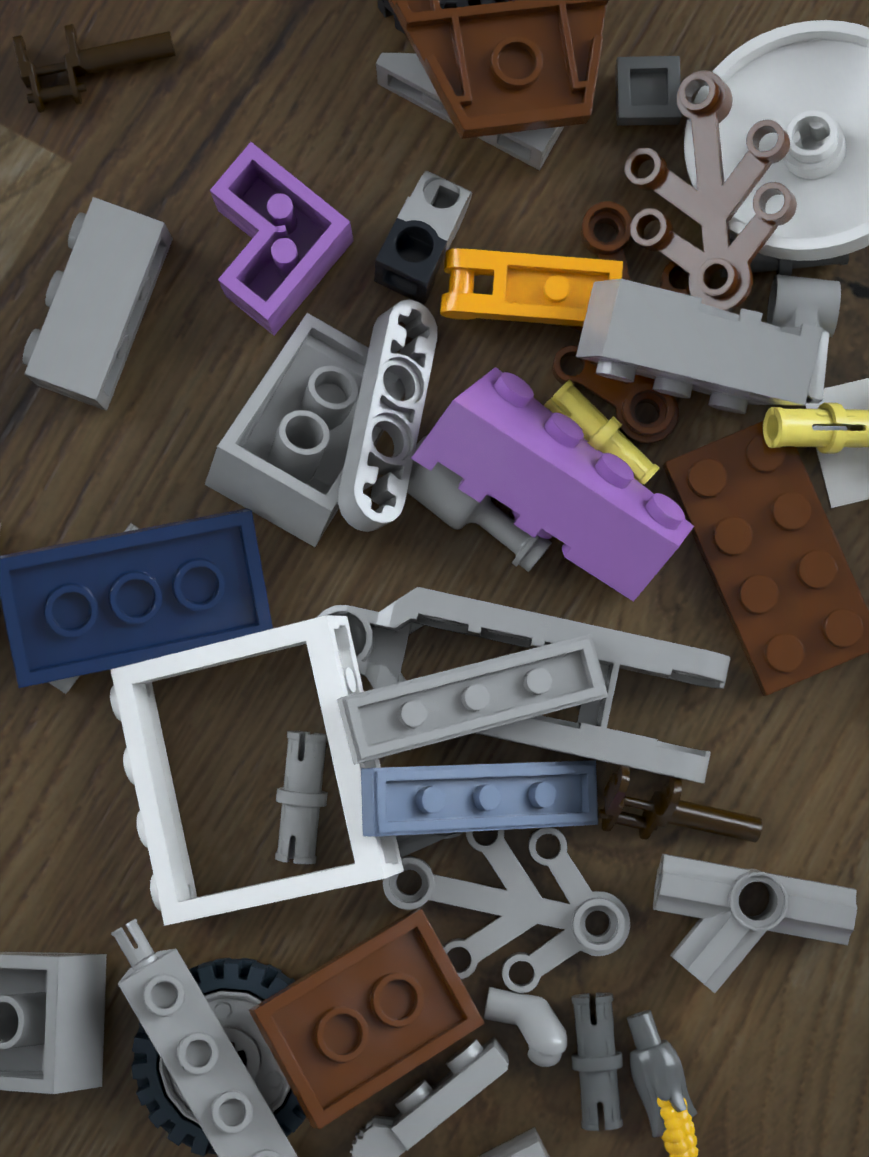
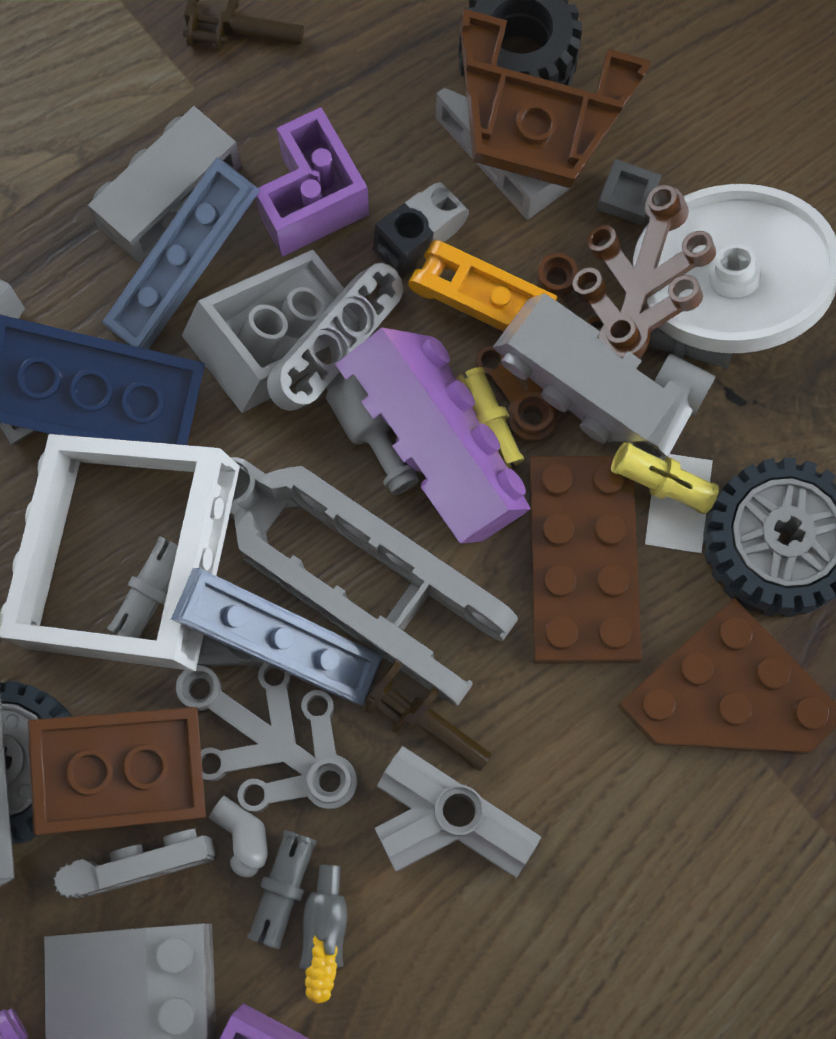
camera: 20 degrees right, 10 degrees down
(163, 390) = (181, 255): none -> sand blue tile
(471, 698) = (302, 556): light grey tile -> none

